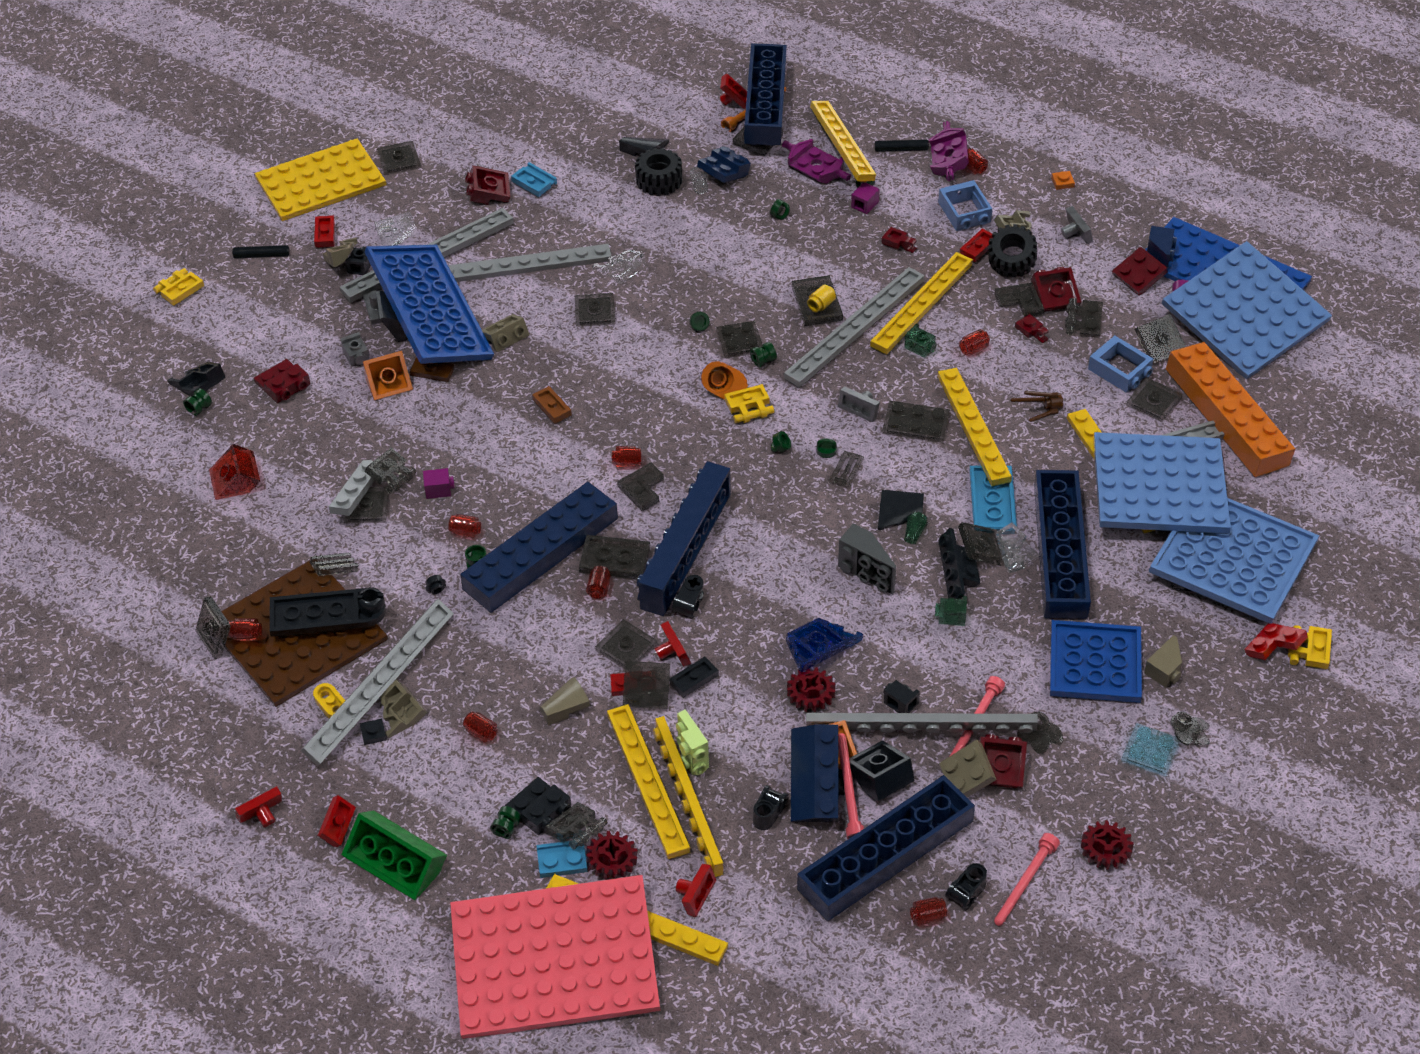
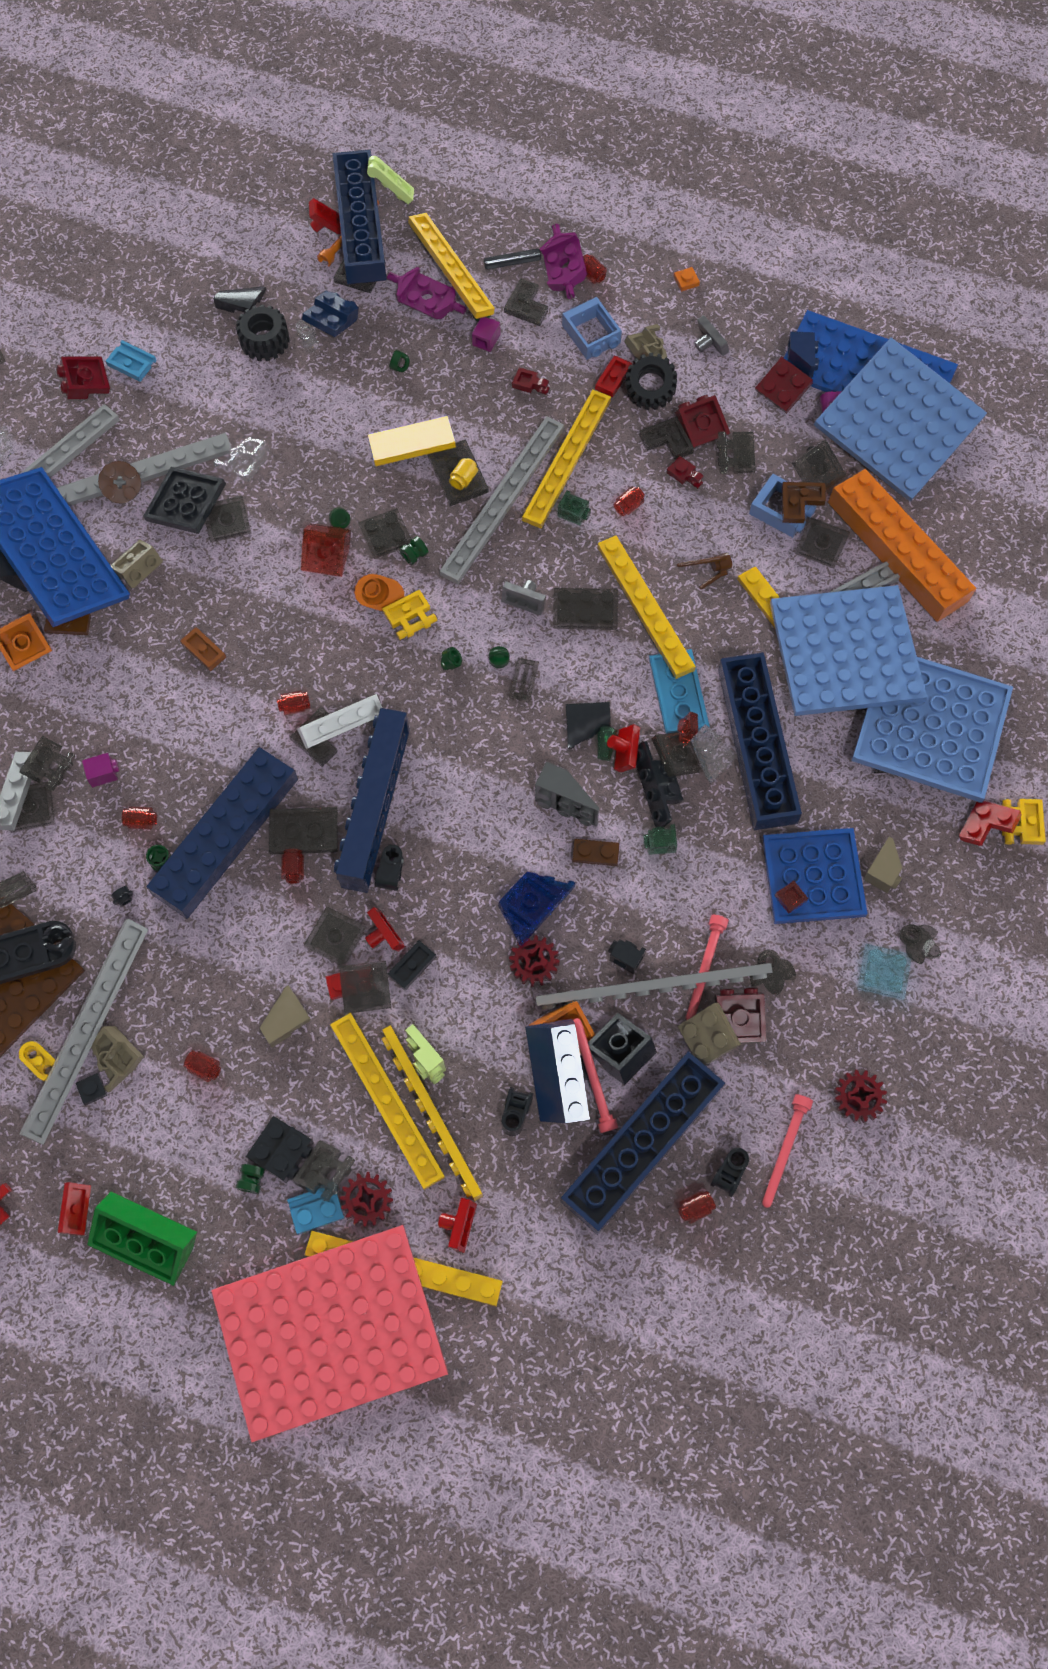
camera: 10 degrees left, 20 degrees up
(498, 257) = (110, 490): none -> reddish brown plate
(560, 288) = (184, 500): none -> black plate
(664, 474) = (339, 721): none -> white plate
(680, 343) = (325, 549): none -> clear red slope
(778, 270) = (411, 441): none -> tile
(800, 69) = (390, 179): none -> yellowish green plate
(887, 614) = (595, 852): none -> reddish brown plate
(905, 180) = (522, 304): none -> clear smoke plate
(933, 532) = (626, 747): none -> red tile
(994, 521) = (688, 727): none -> clear red plate
(1068, 669) = (791, 897): none -> clear red plate
(1134, 352) = (797, 495): none -> reddish brown plate

